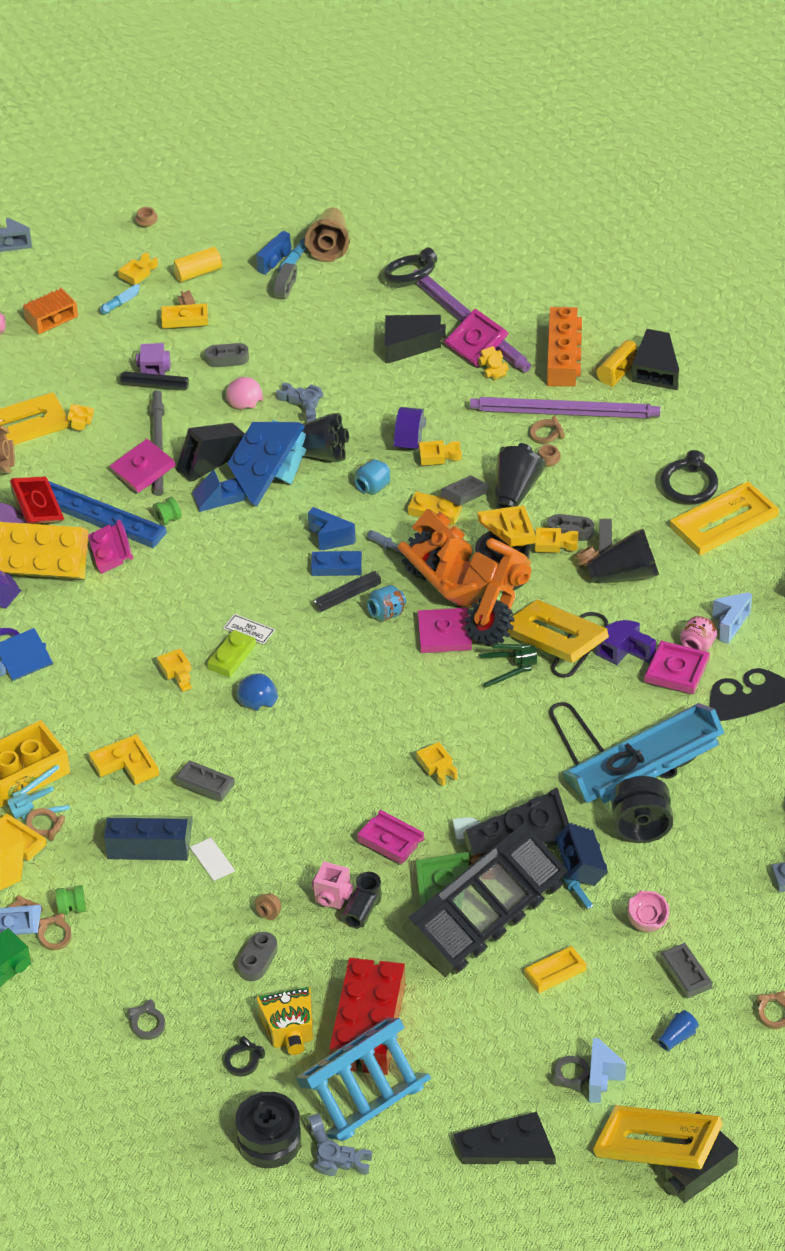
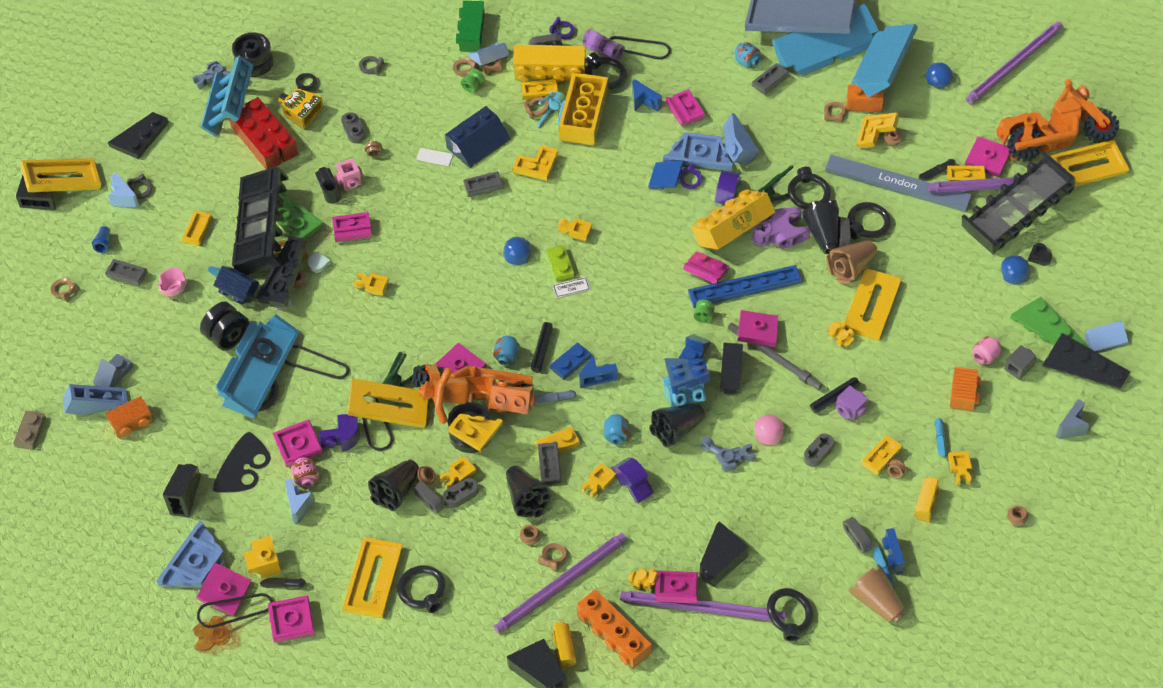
camera: 135 degrees right, 10 degrees up
(36, 500) = (775, 245): red slope -> none

